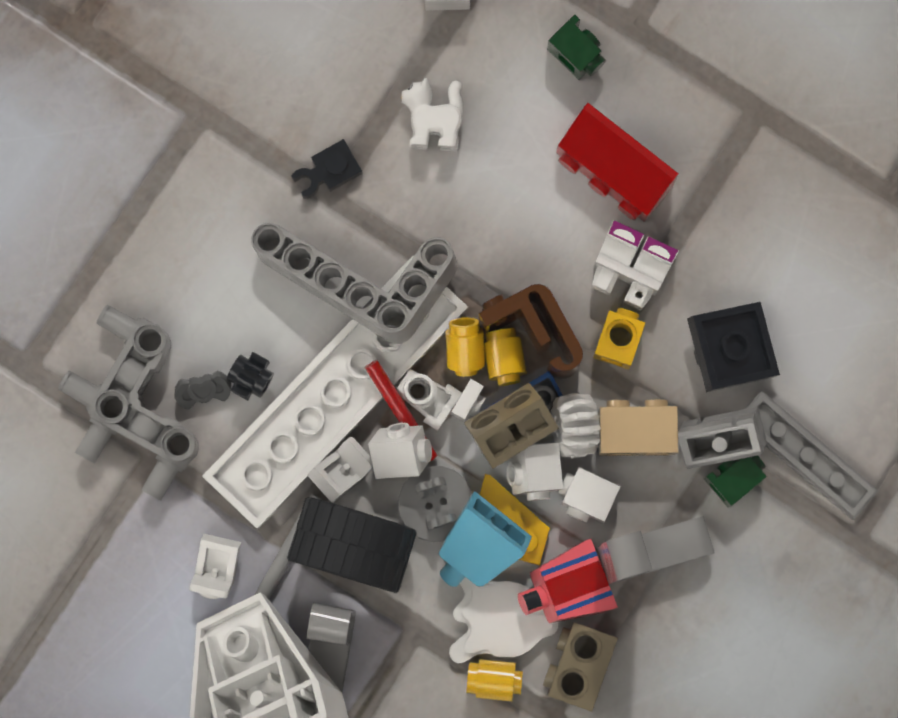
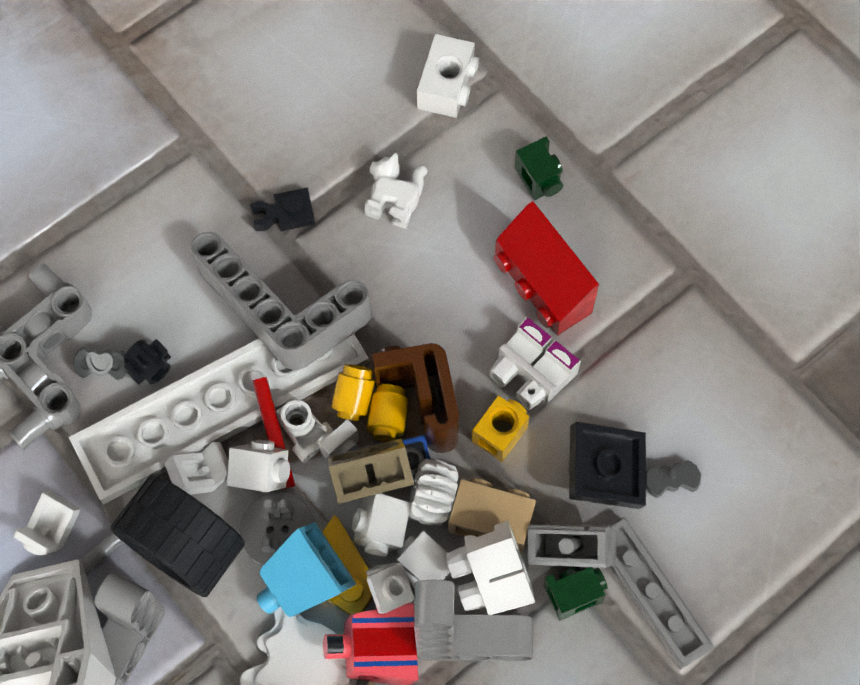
camera: 15 degrees right, 15 degrees down
(564, 530) = (389, 586): none -> white bracket
(661, 484) = (498, 571): none -> white hips
(796, 338) = (672, 478): none -> dark grey piece

